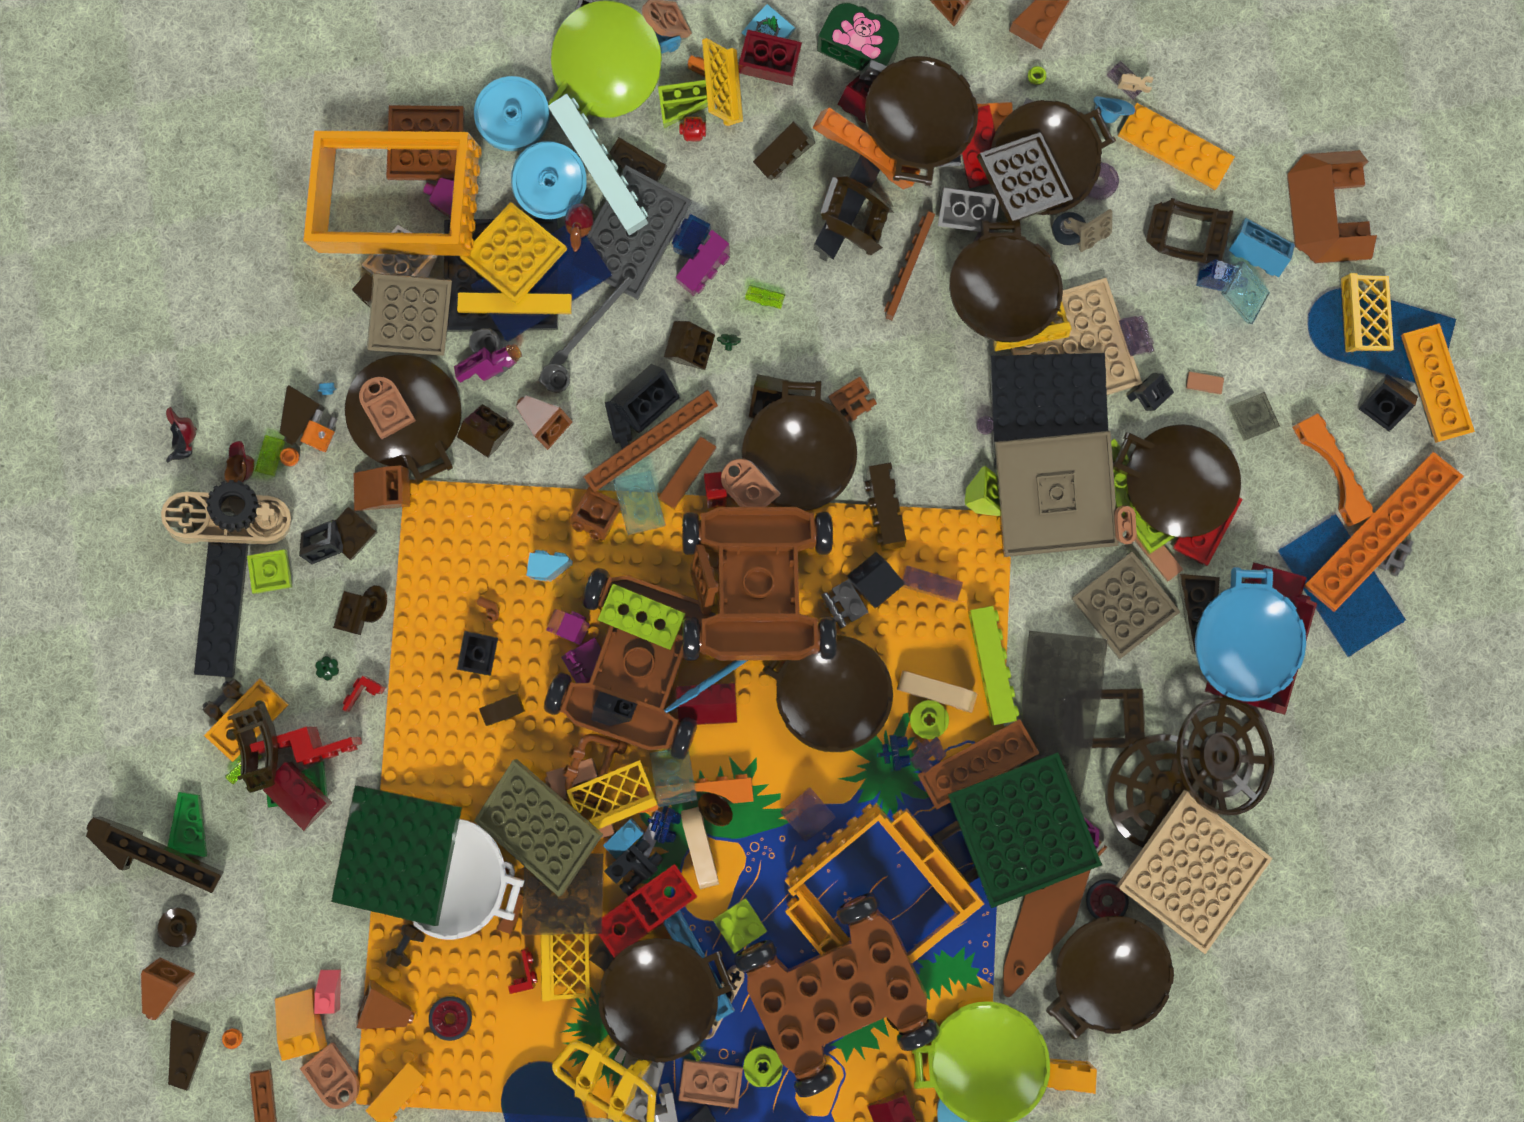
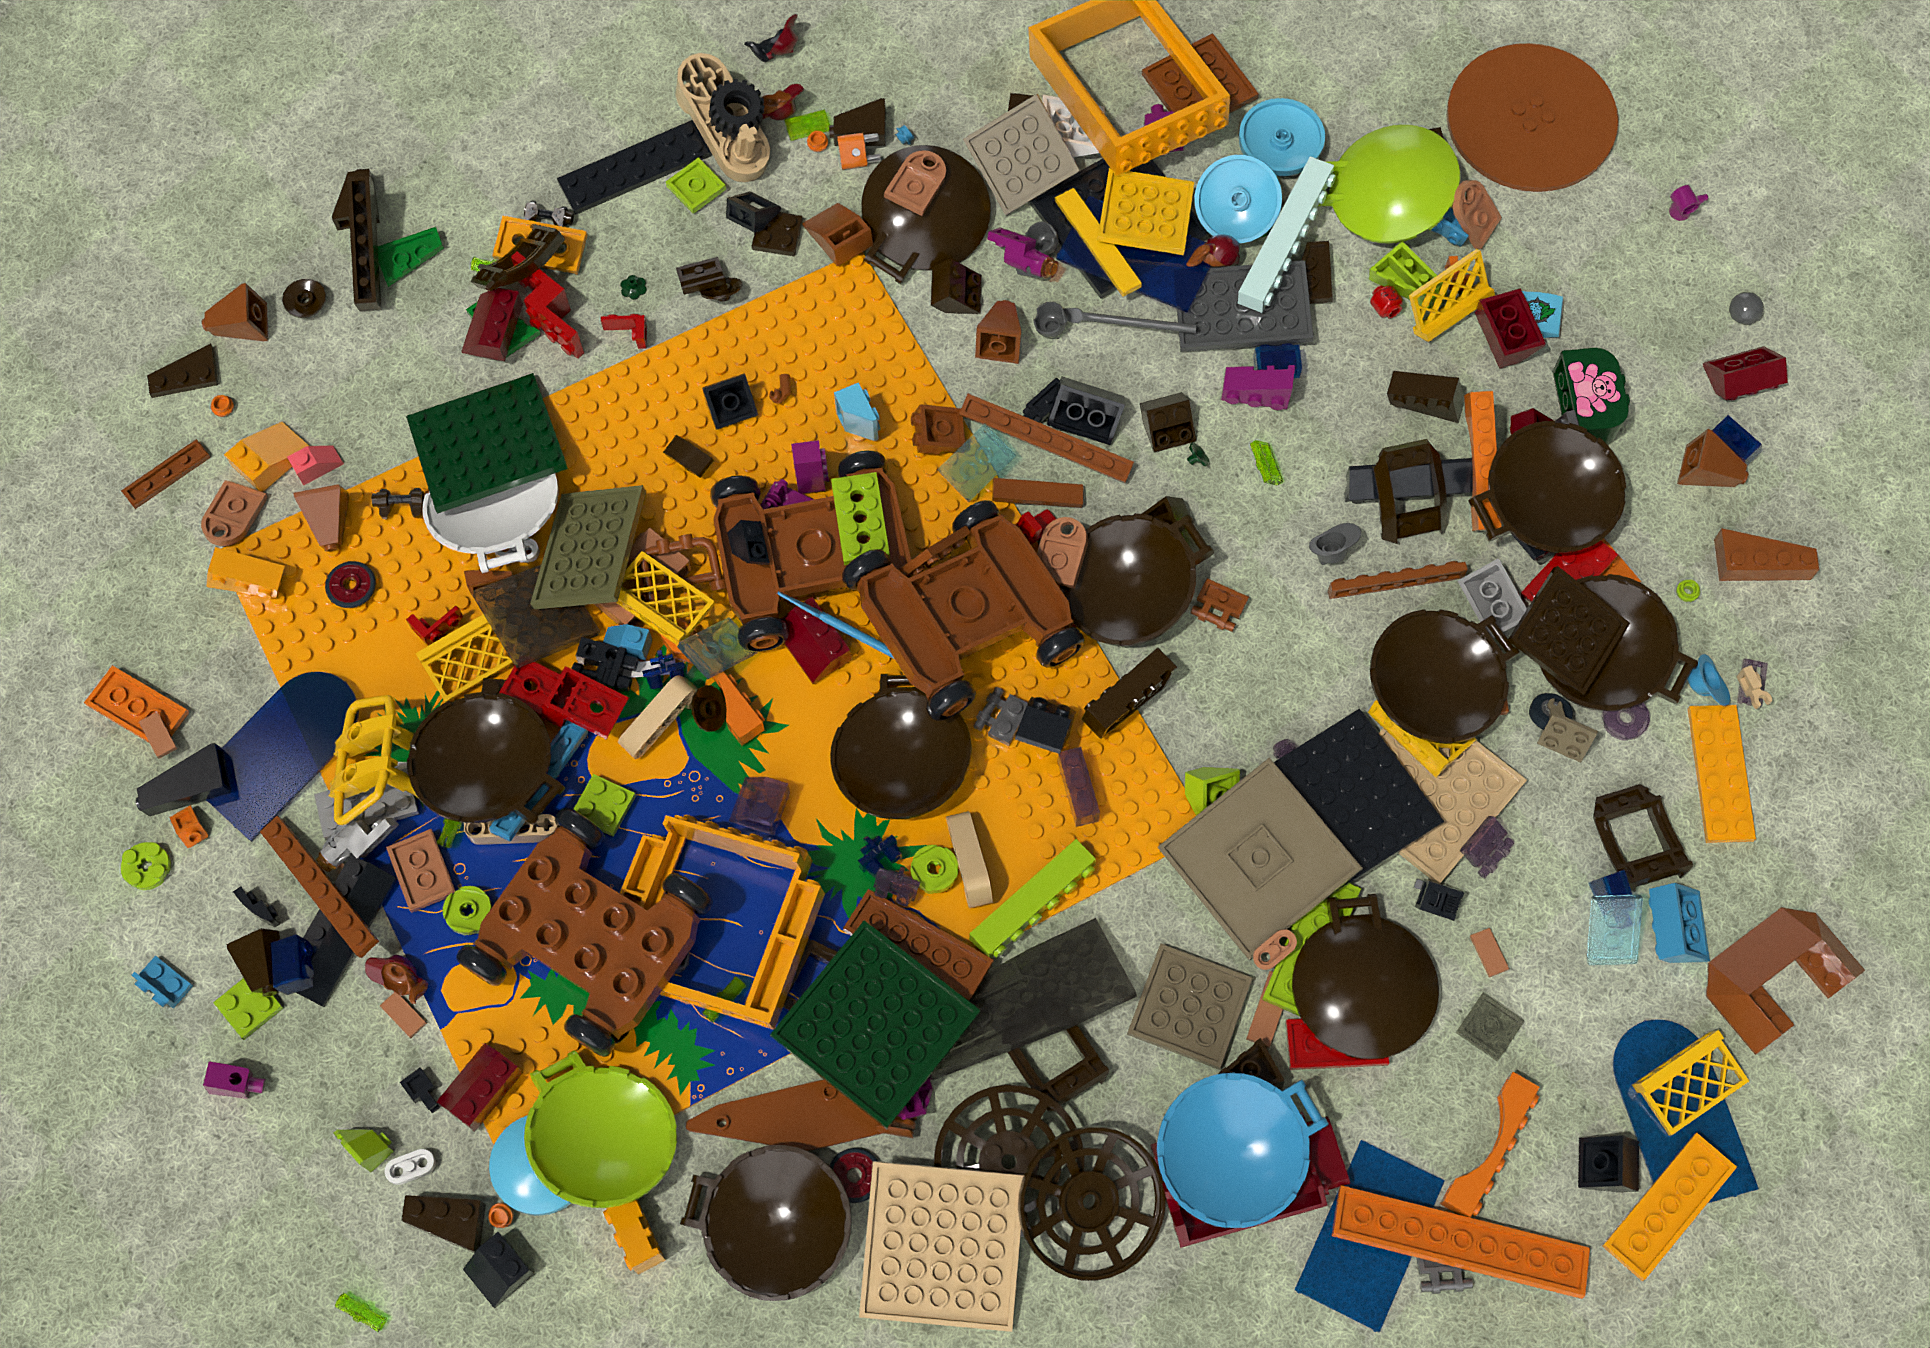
camera: 60 degrees right, 15 degrees down
(857, 289) = (1333, 544): none -> dark grey piece
(934, 917) = (729, 993): none -> clear neon green pin

